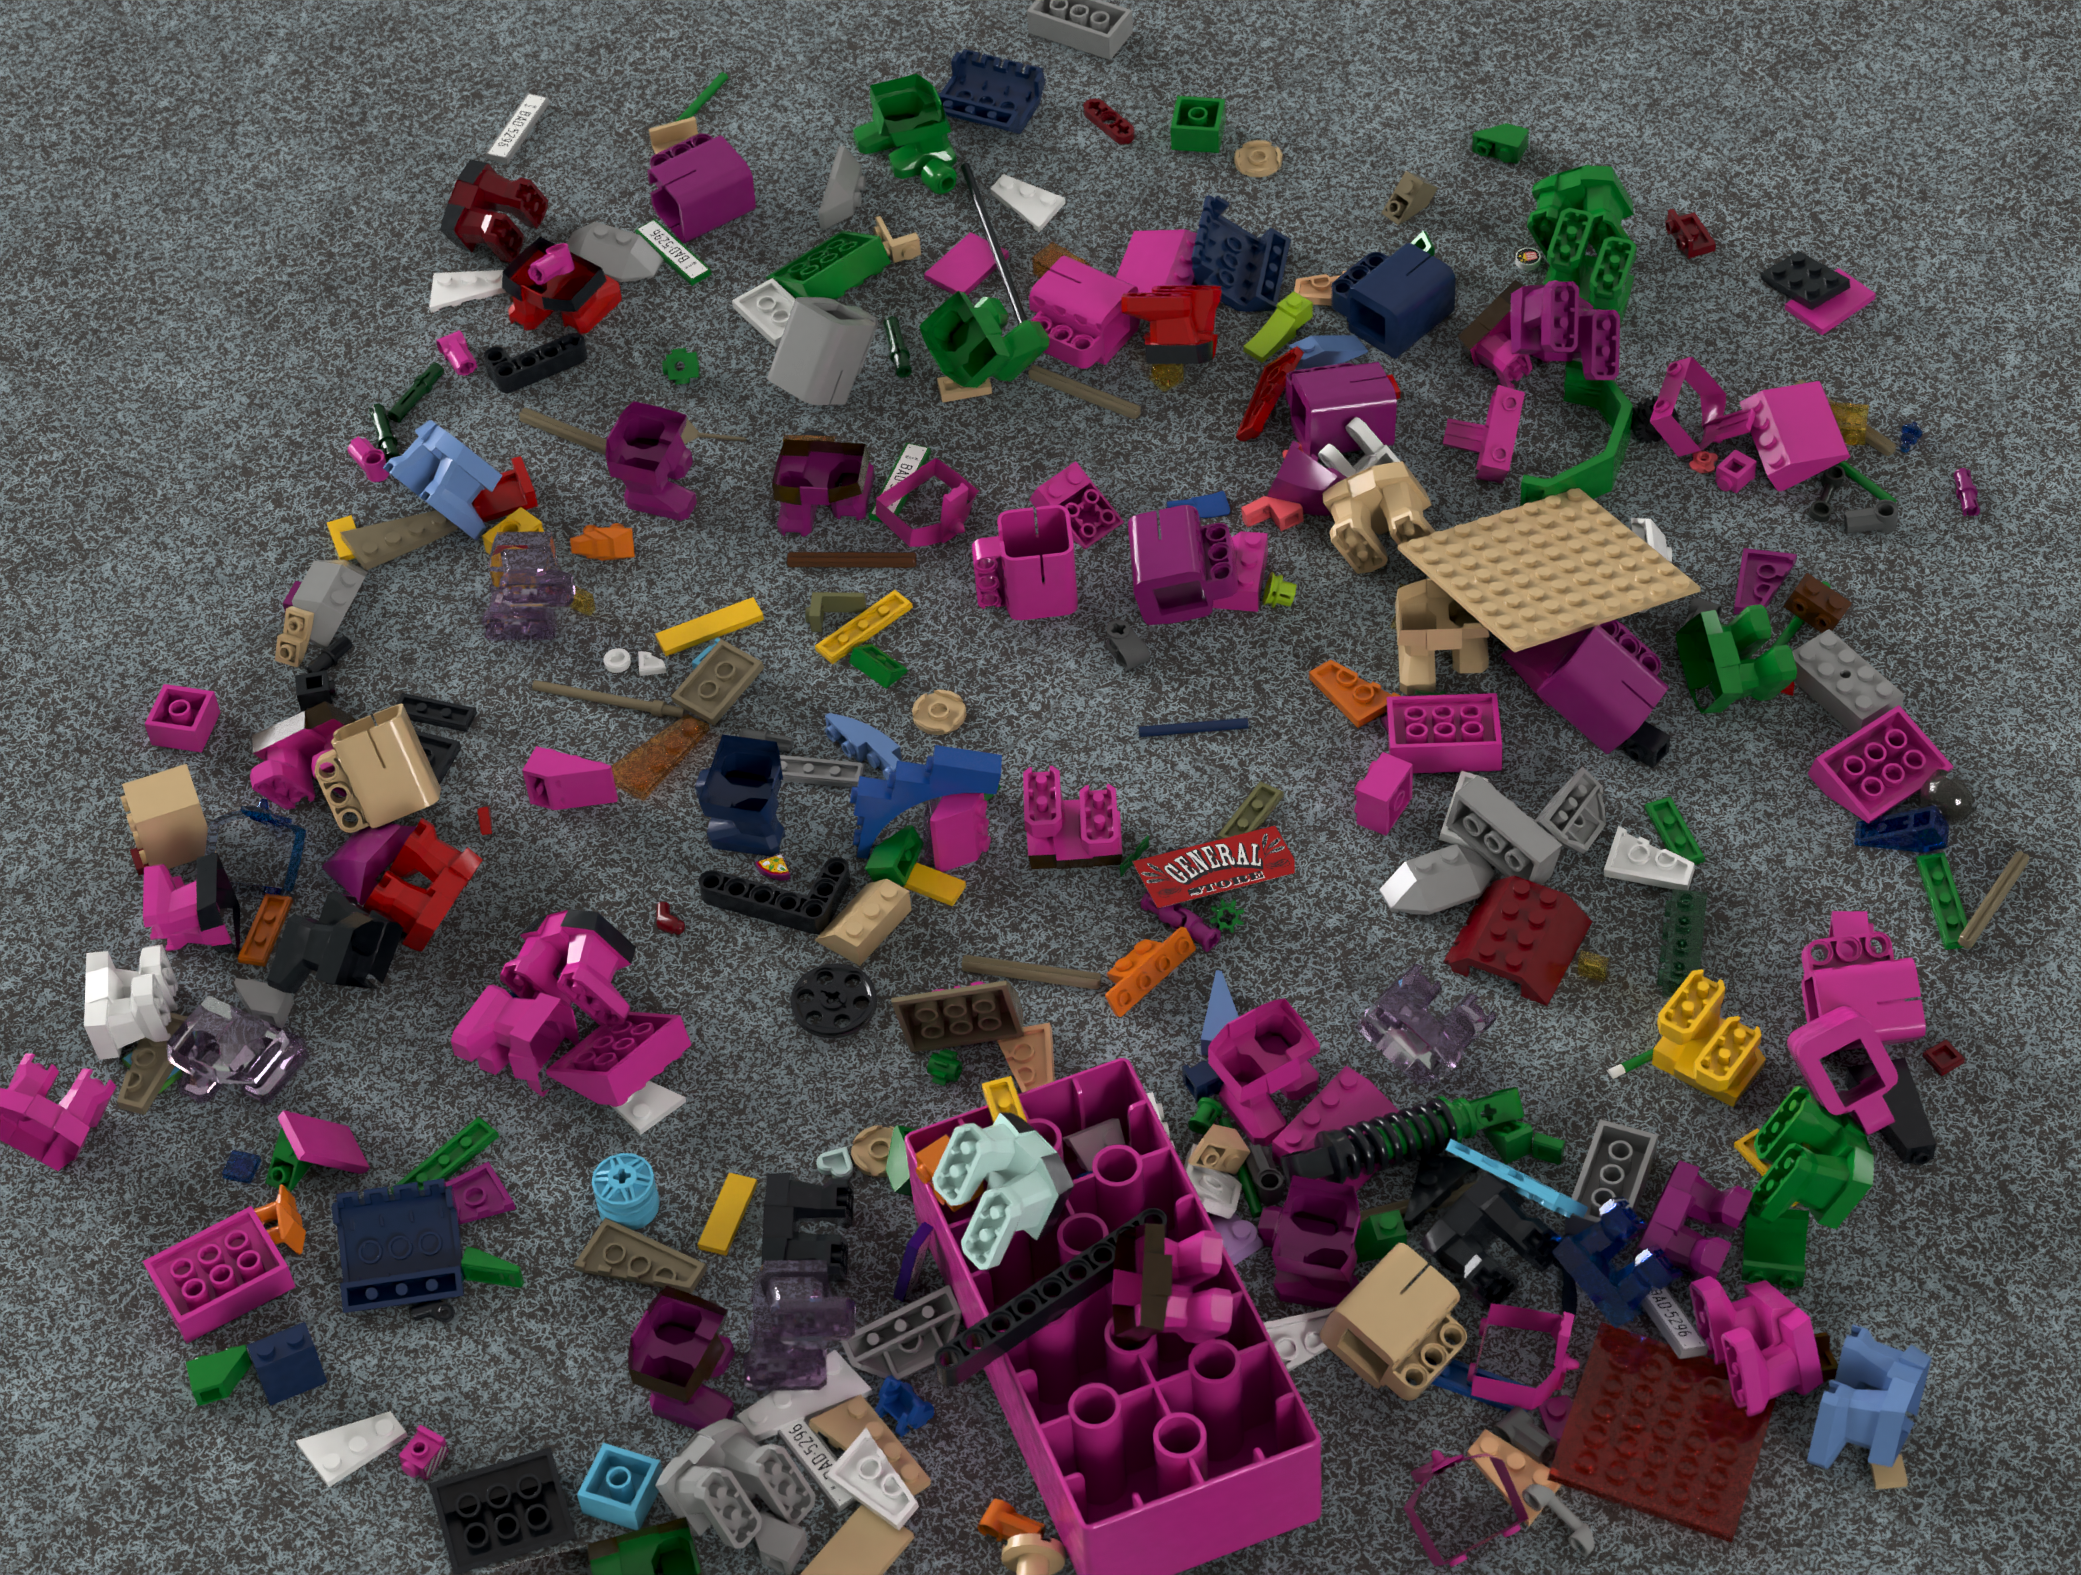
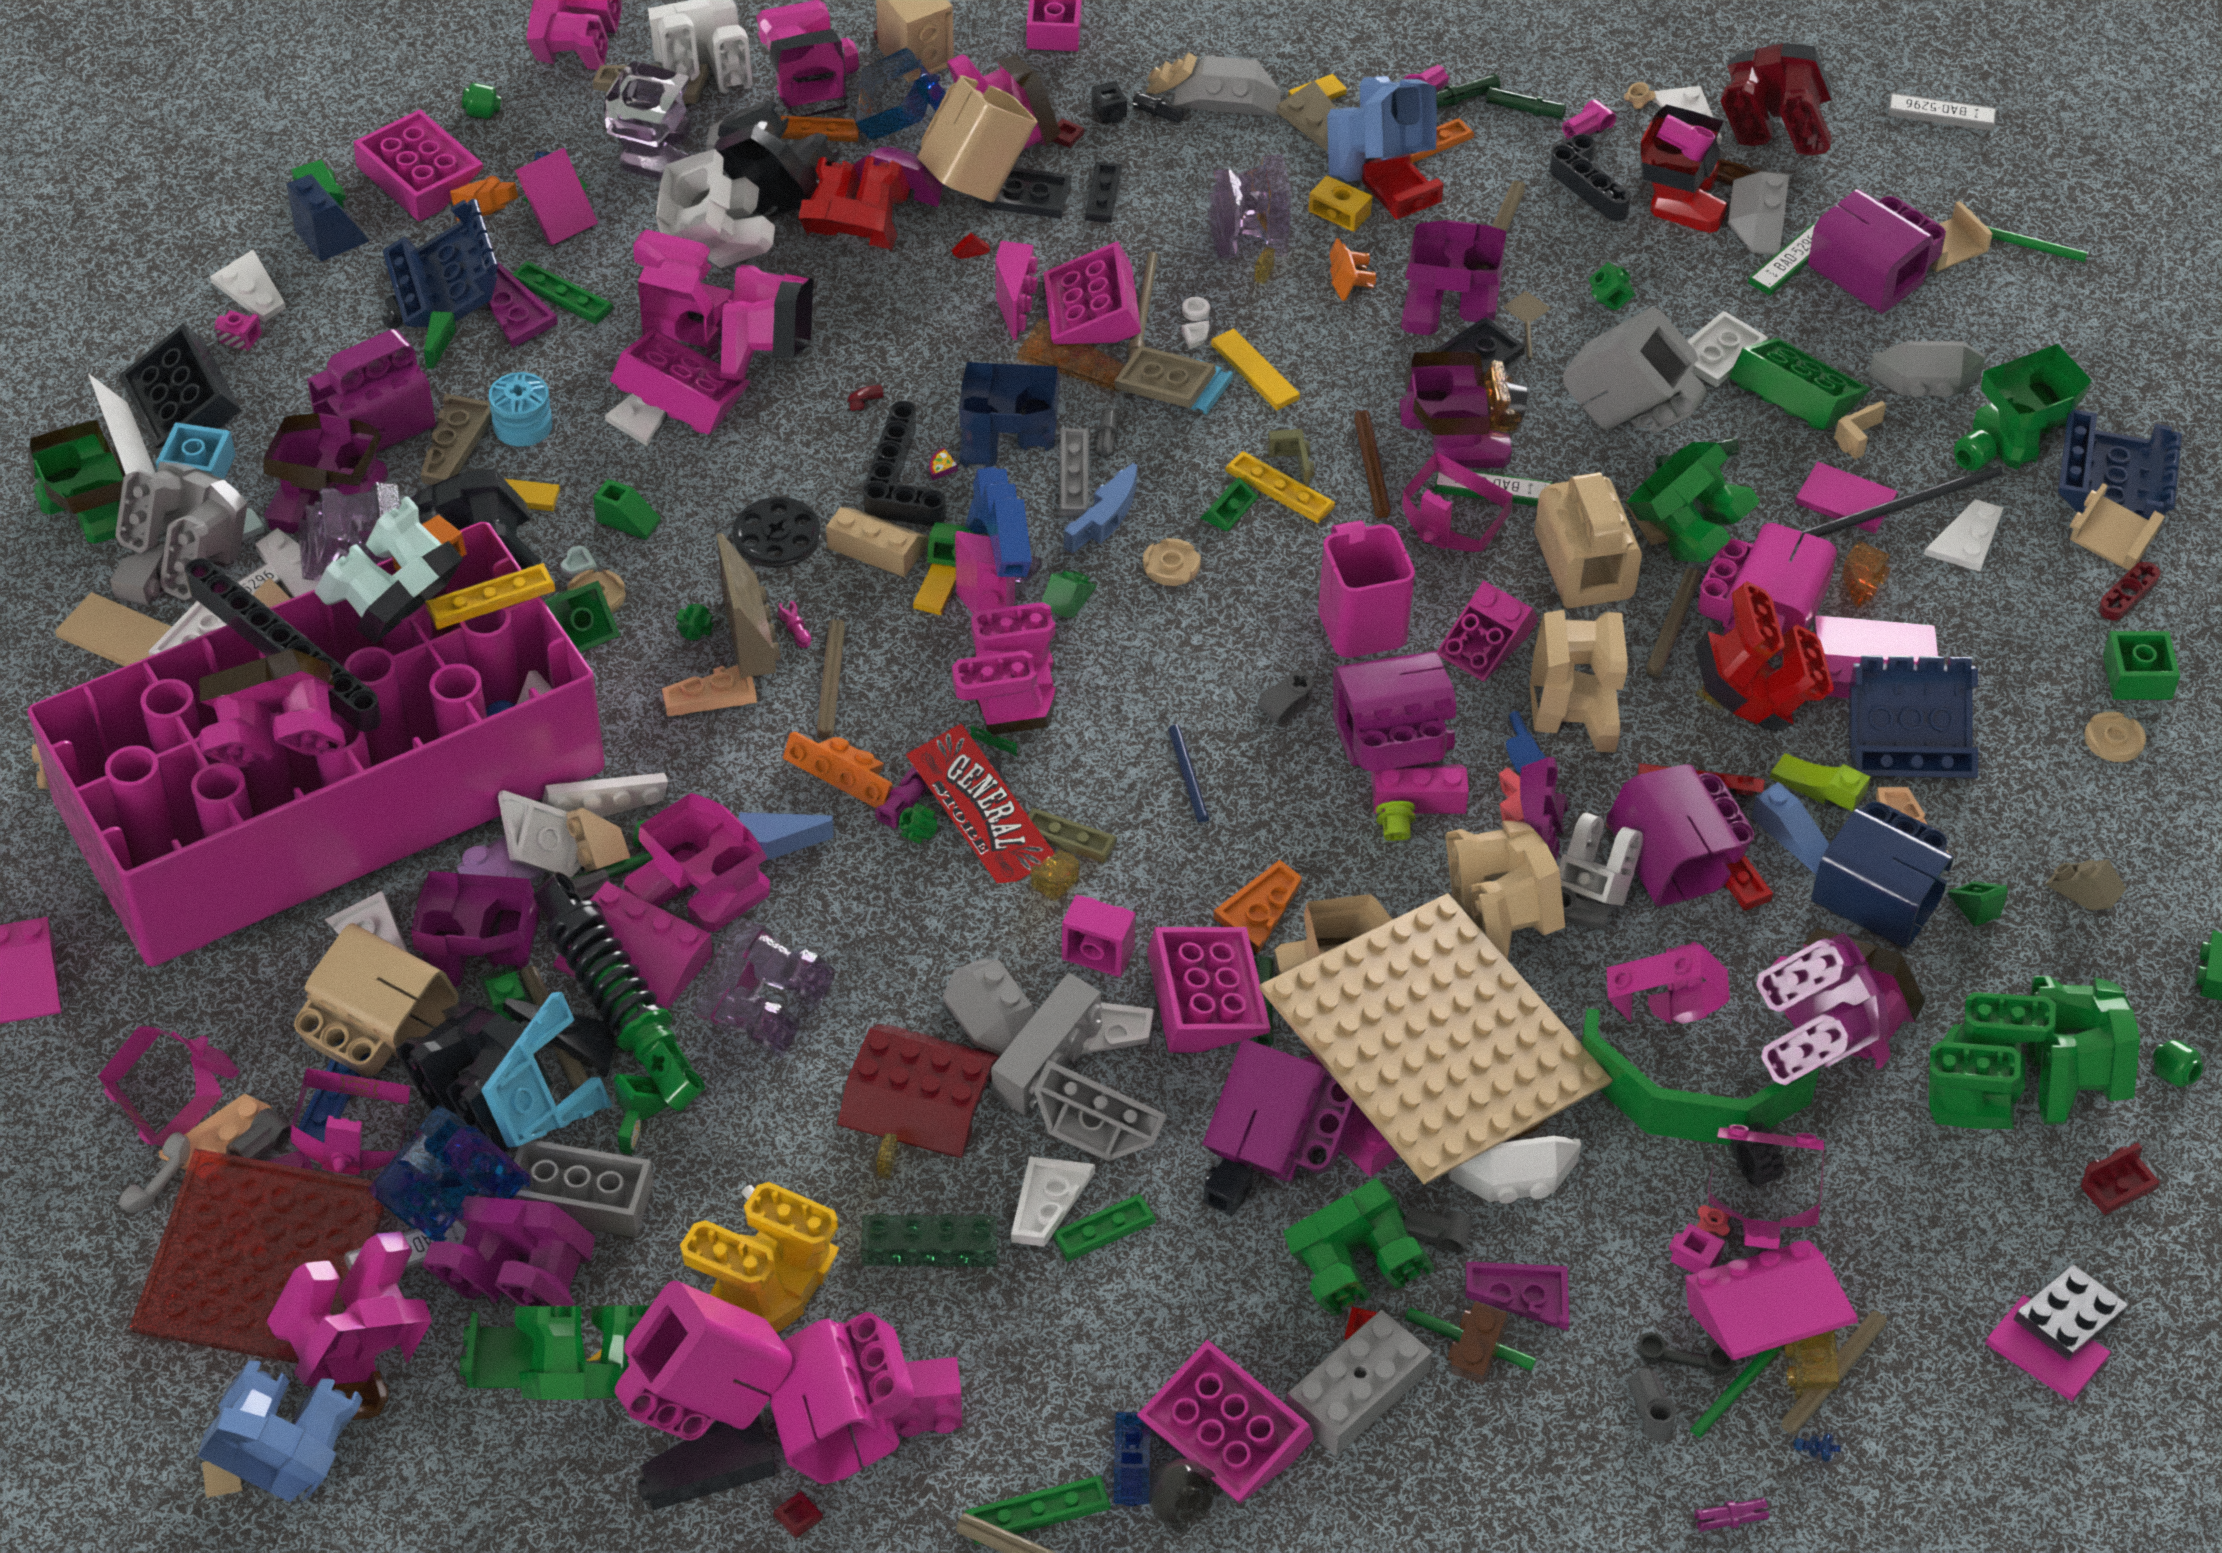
camera: 75 degrees right, 0 degrees up
(126, 1219) = (480, 100): none -> green head
(401, 1003) = (705, 206): none -> white piece
(427, 310) = (1639, 95): none -> tan plate
(588, 1308) = (377, 386): none -> magenta piece
(596, 722) = (1093, 298): none -> dark pink slope
(735, 471) = (1489, 341): none -> black plate
(784, 1116) = (624, 510): none -> green slope
(1004, 414) = (1587, 541): none -> tan piece
(1052, 110) = (2114, 530): none -> tan panel
(1155, 424) = (1574, 694): none -> tan piece
(1300, 823) = (1055, 874): none -> clear yellow brick

